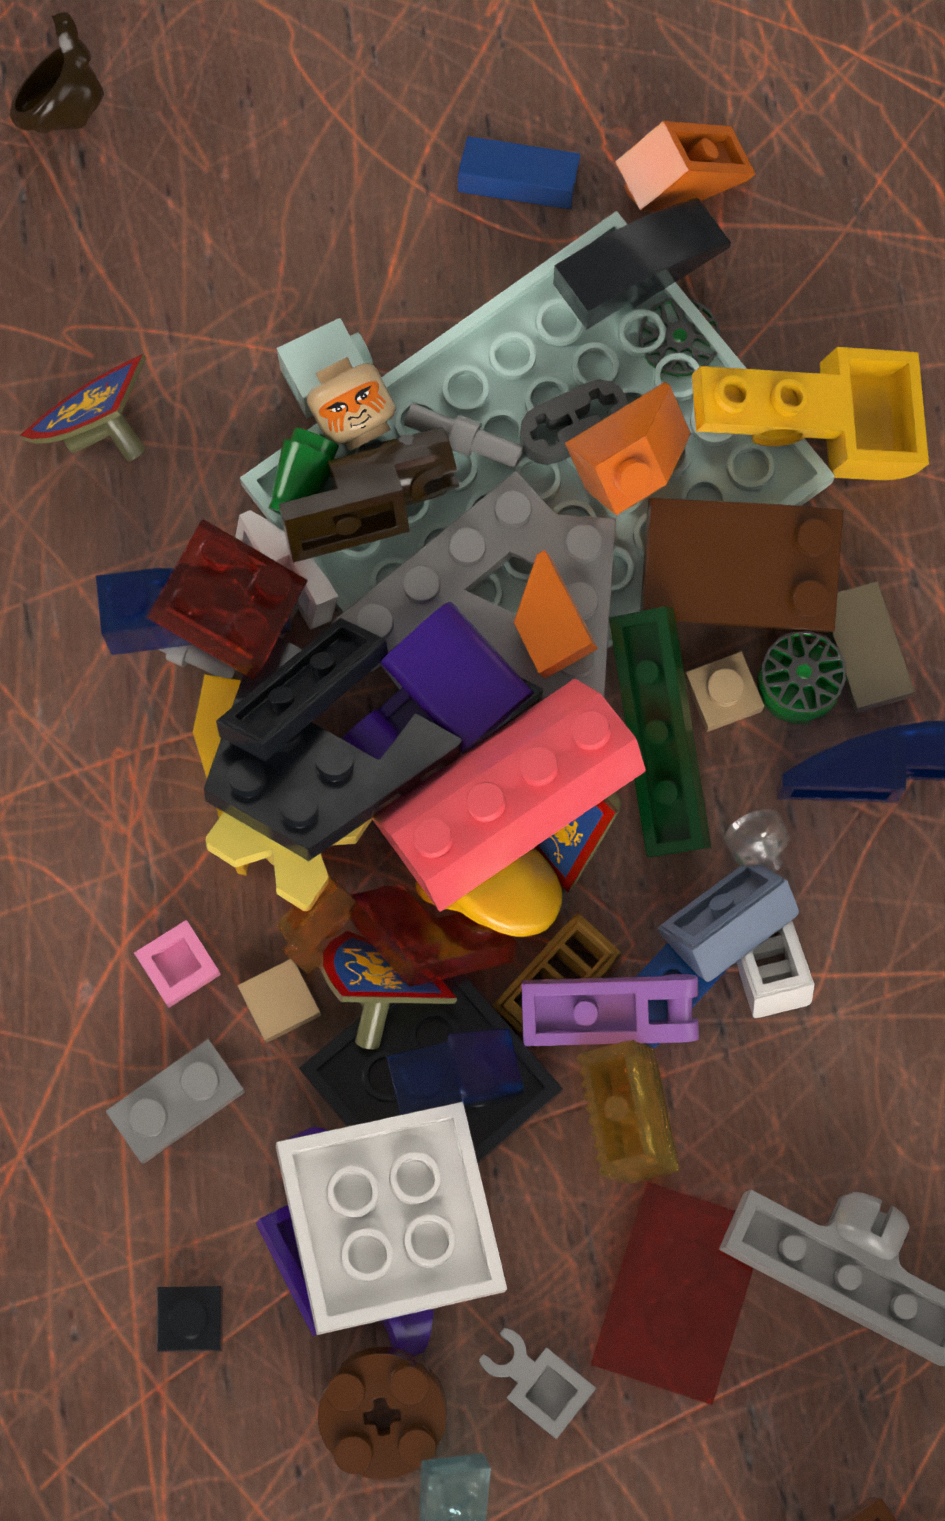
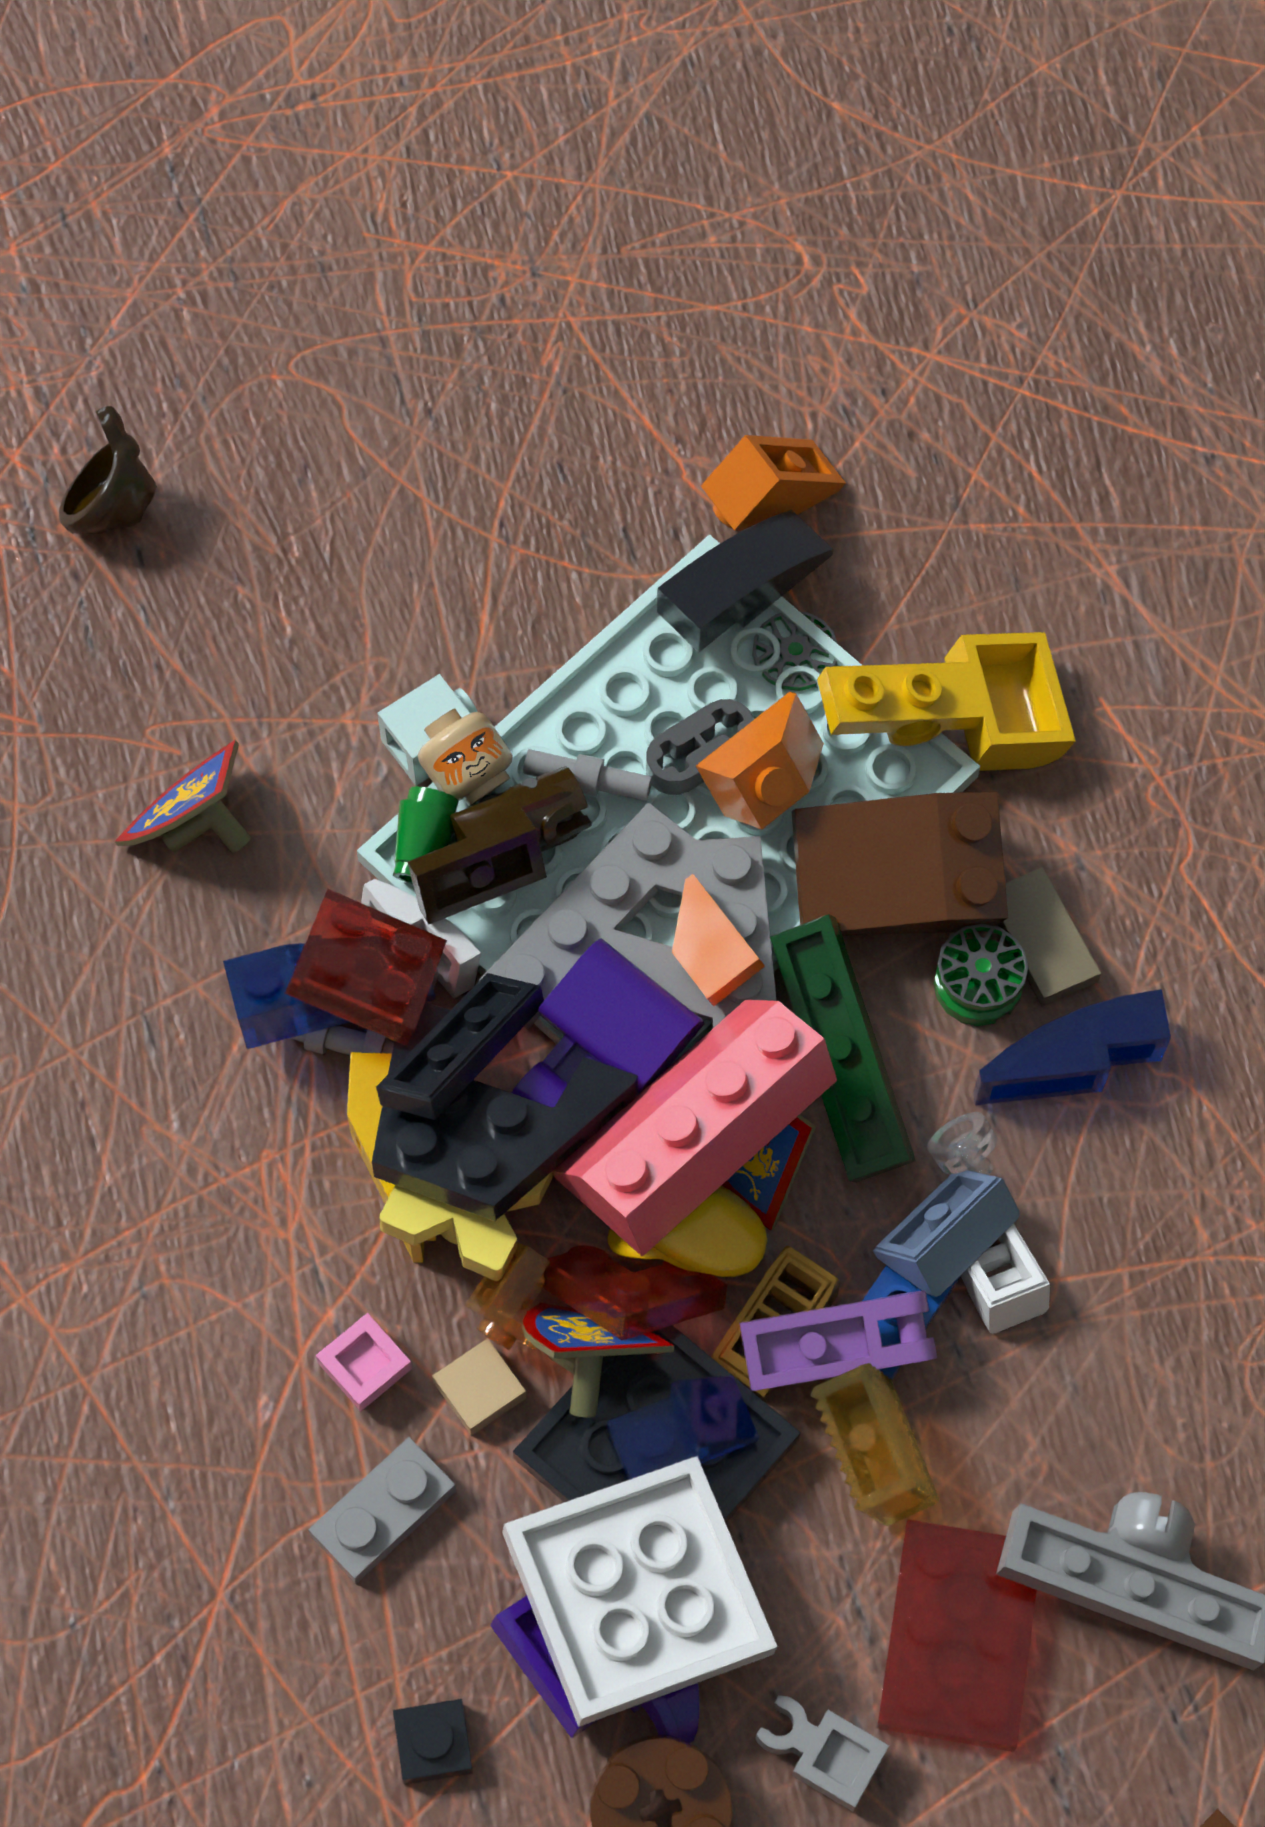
camera: 10 degrees left, 10 degrees down
(518, 172) = (600, 512): blue slope -> none
(724, 692) = (902, 1002): tan plate -> none

